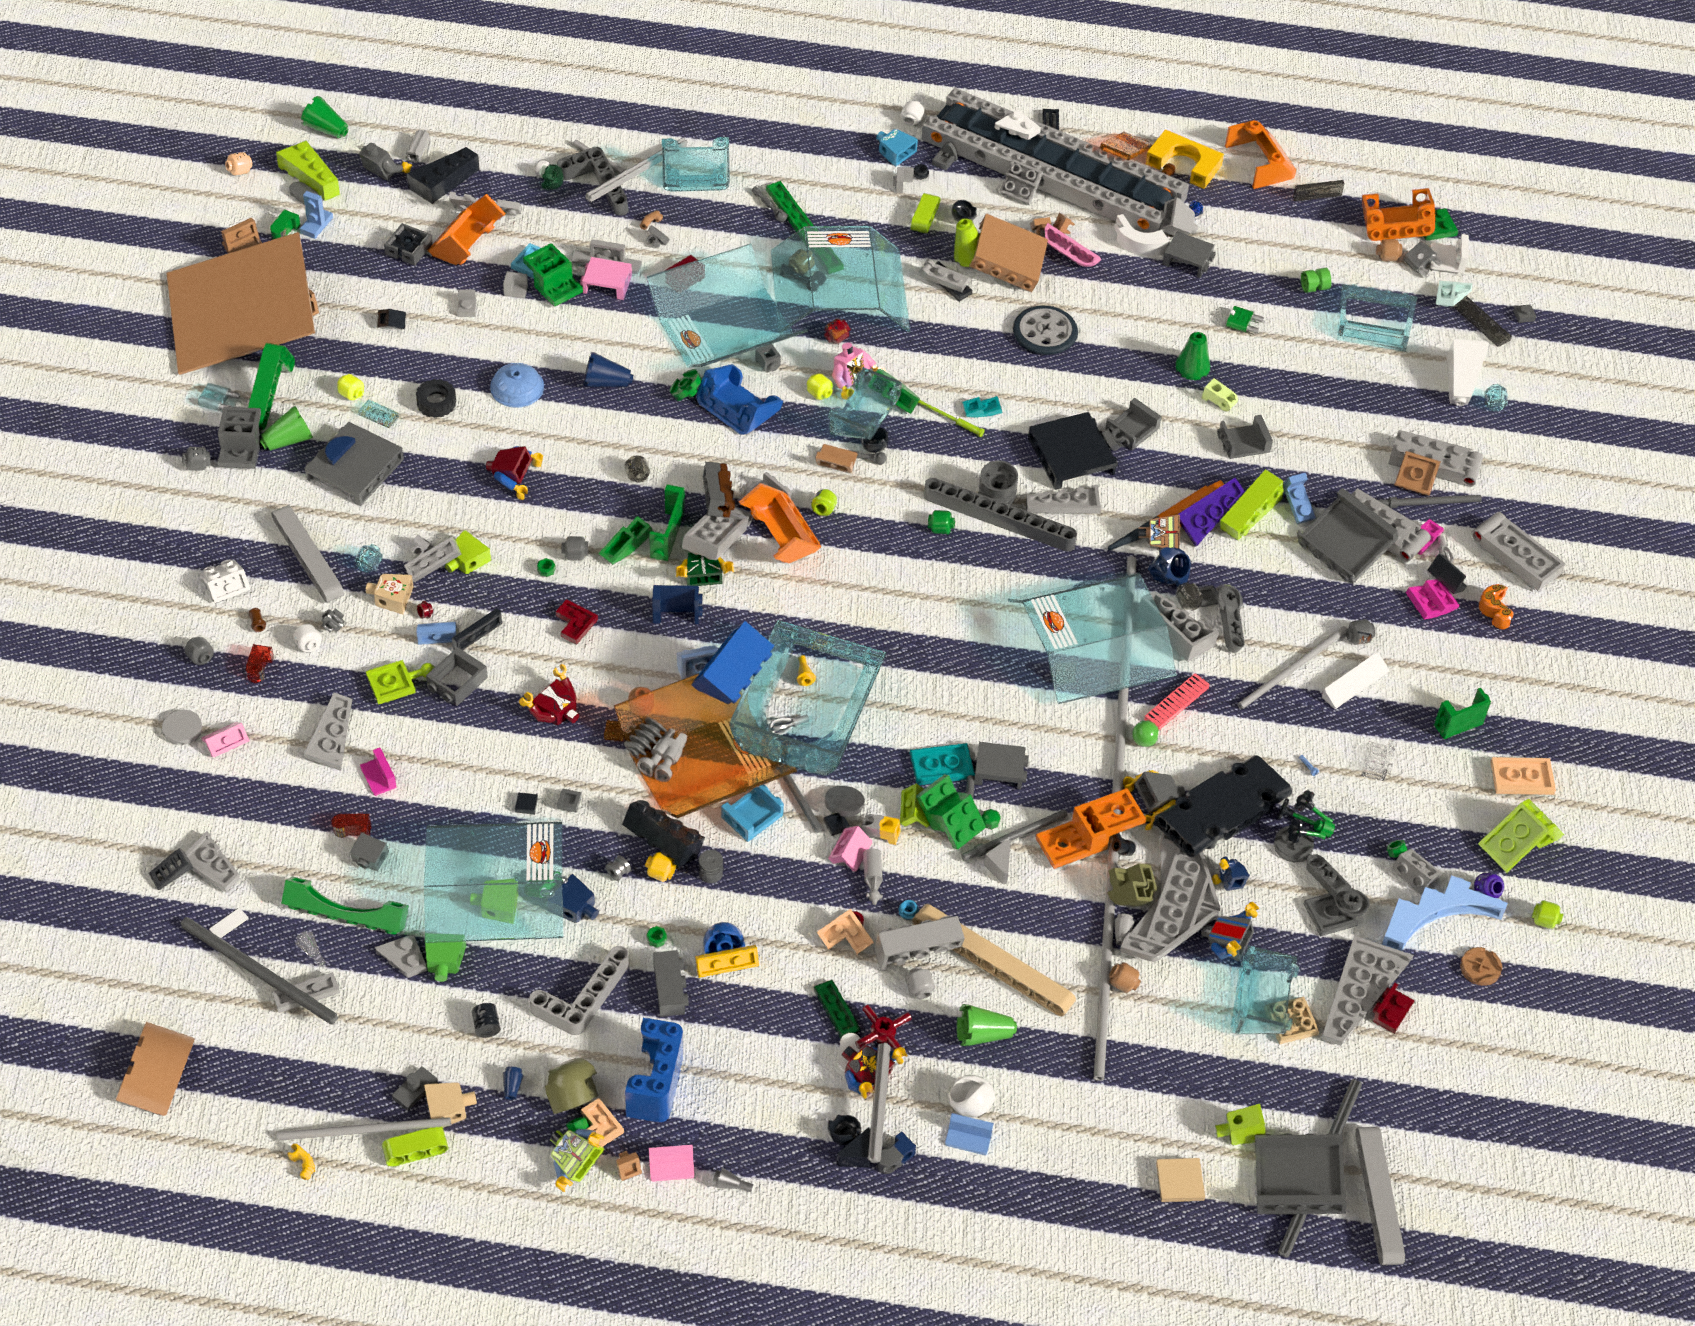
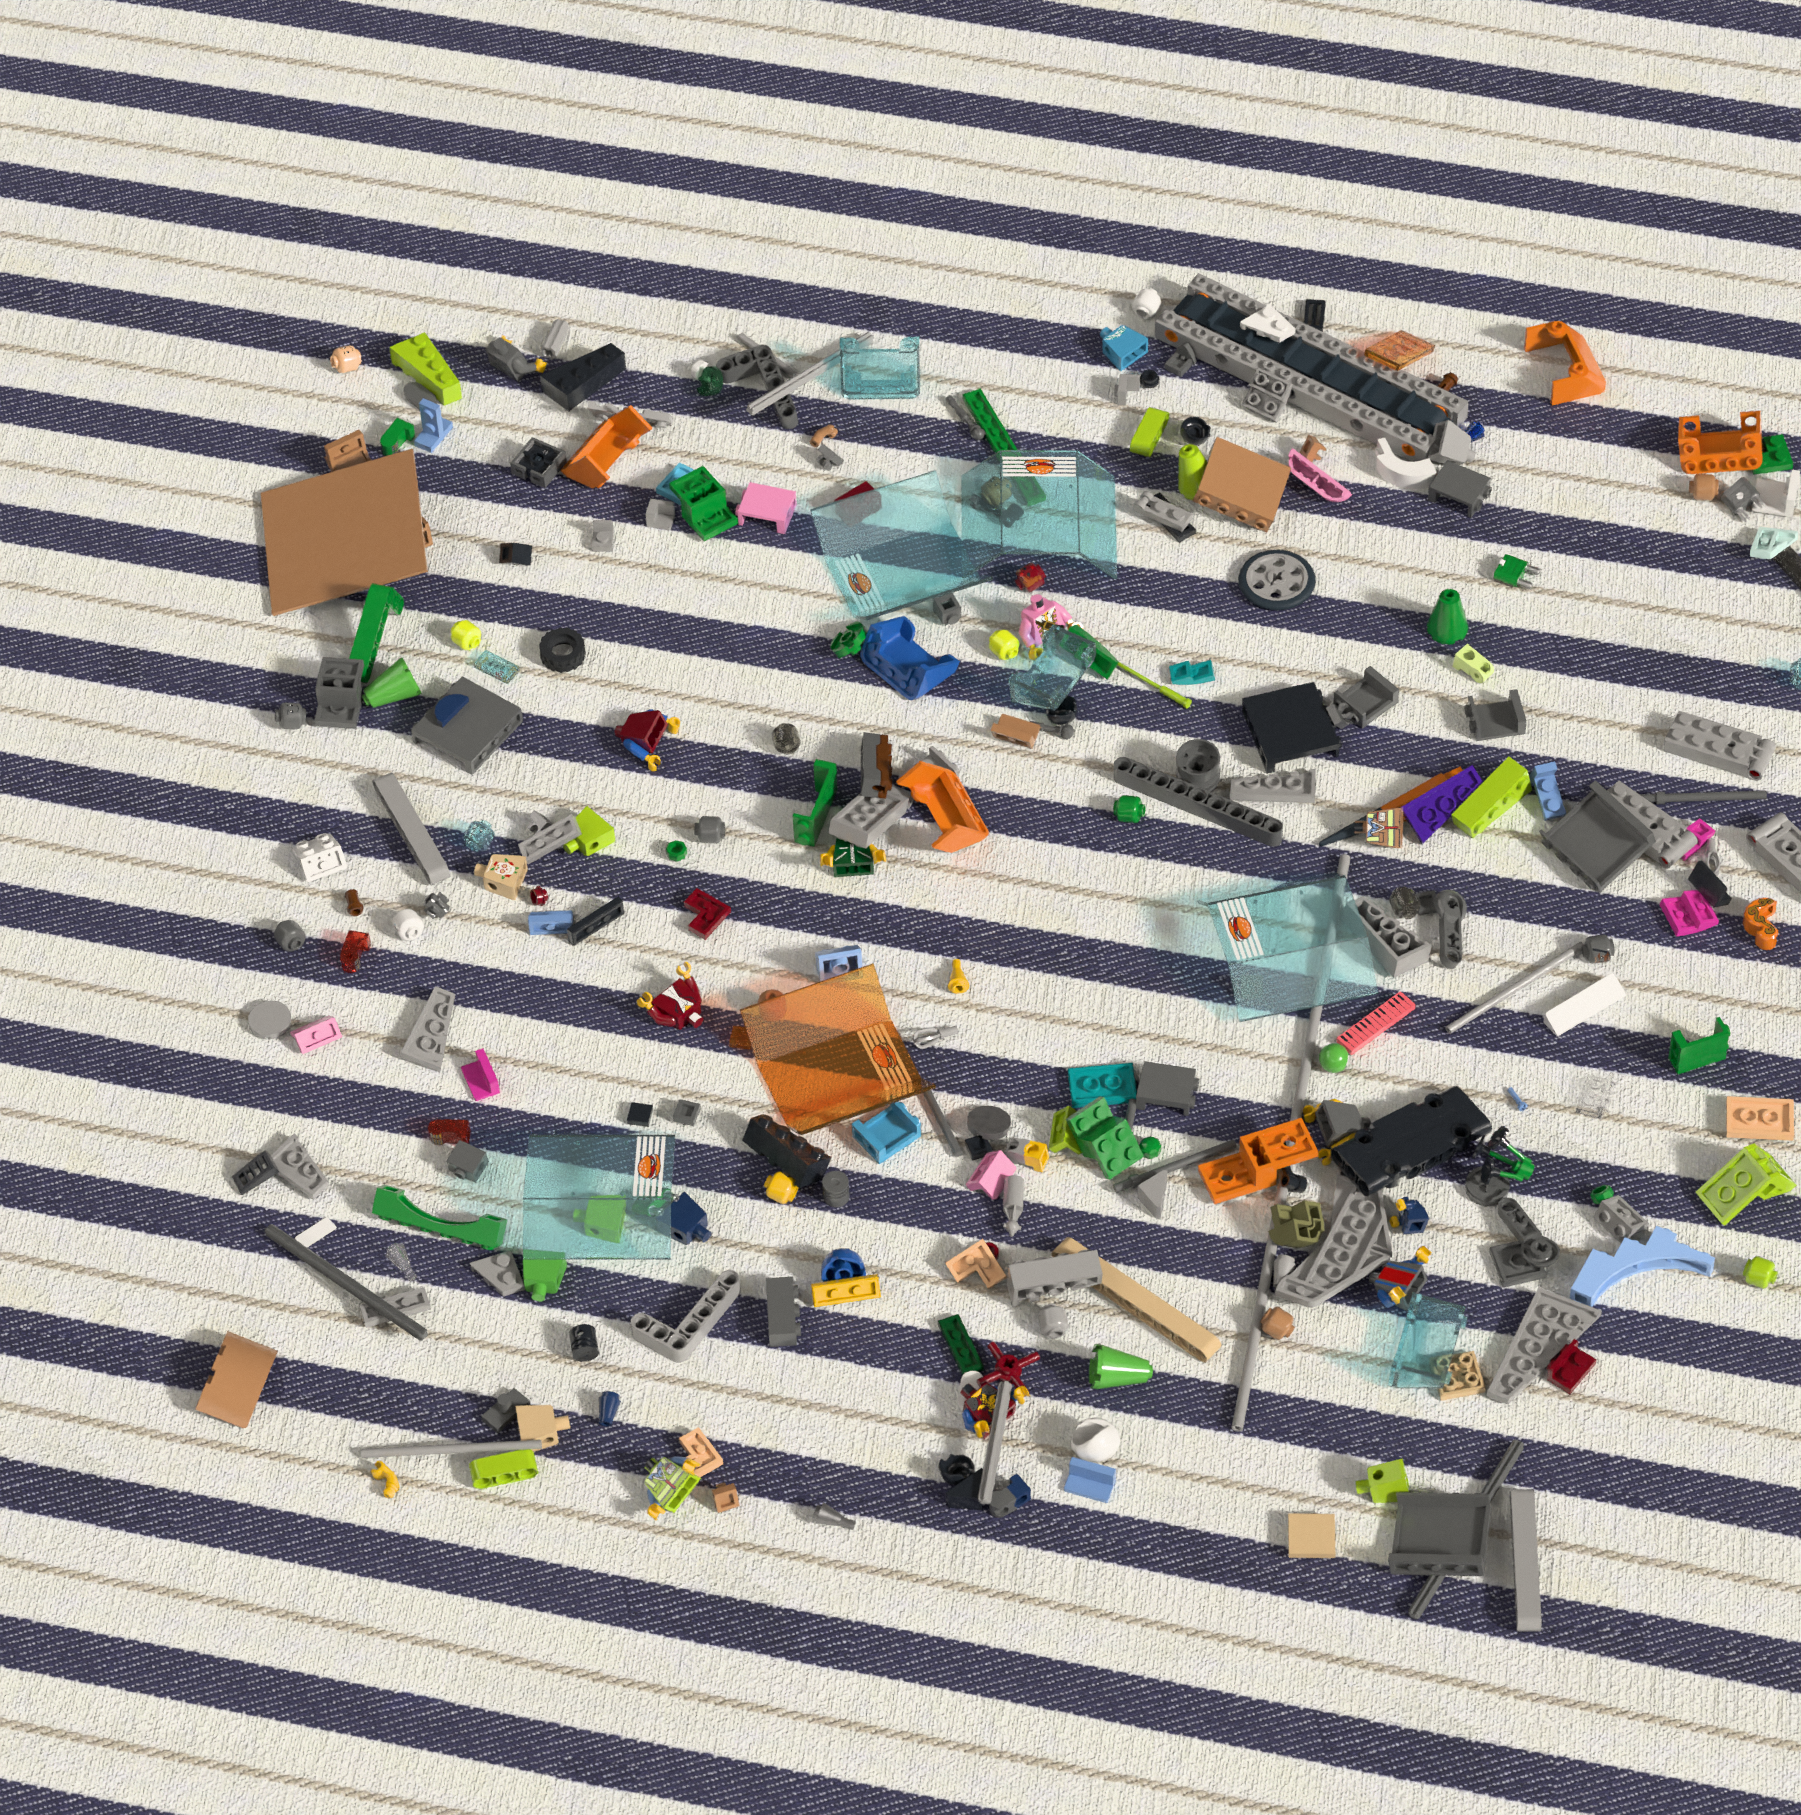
camera: 10 degrees right, 0 degrees up
(216, 396) = (313, 642): clear light blue piece -> none
(323, 118) = (446, 304): green cone -> none
(394, 680) = (502, 975): lime plate -> none
(467, 663) = (582, 957): dark grey window -> none
(516, 385) = (655, 636): medium blue hat -> none
(570, 1084) = (669, 1412): olive brick -> none
(578, 1123) = (676, 1451): green tile -> none
(606, 251) = (767, 475): light grey bracket -> none
(606, 373) = (758, 624): dark blue cone -> none
(618, 868) = (735, 1187): flat silver wheel -> none
(626, 541) = (768, 822): green slope -> none
(644, 737) = (772, 1046): dark grey piece -> none
(653, 1095) = (757, 1425): blue windscreen -> none
(656, 936) = (771, 1262): green tile -> none
(667, 750) = (796, 1060): light grey piece -> none
(671, 1163) = (771, 1496): bright pink panel -> none
(676, 599) = (818, 891): dark blue panel -> none
(734, 664) = (875, 967): blue windscreen -> none
(749, 719) = (889, 1028): clear light blue panel -> none
(824, 502) = (996, 783): lime head -> none
(908, 905) = (1046, 1238): dark azure plate -> none
(1040, 223) = (1284, 448): medium nougat tile -> none
(1165, 567) = (1383, 870): dark blue piece -> none
(1172, 144) = (1458, 348): yellow arch -> none
(1317, 279) = (1610, 523): bright green wheel -> none
(1318, 190) = (1629, 409): clear smoke tile -> none
(1374, 334) = (1672, 593): clear light blue windscreen -> none
(1417, 473) = (1693, 764): medium nougat tile -> none
(1463, 368) = (1771, 635): white slope -> none
(1481, 966) = (1677, 1326): medium nougat tile -> none
(1489, 884) = (1699, 1237): dark purple head -> none

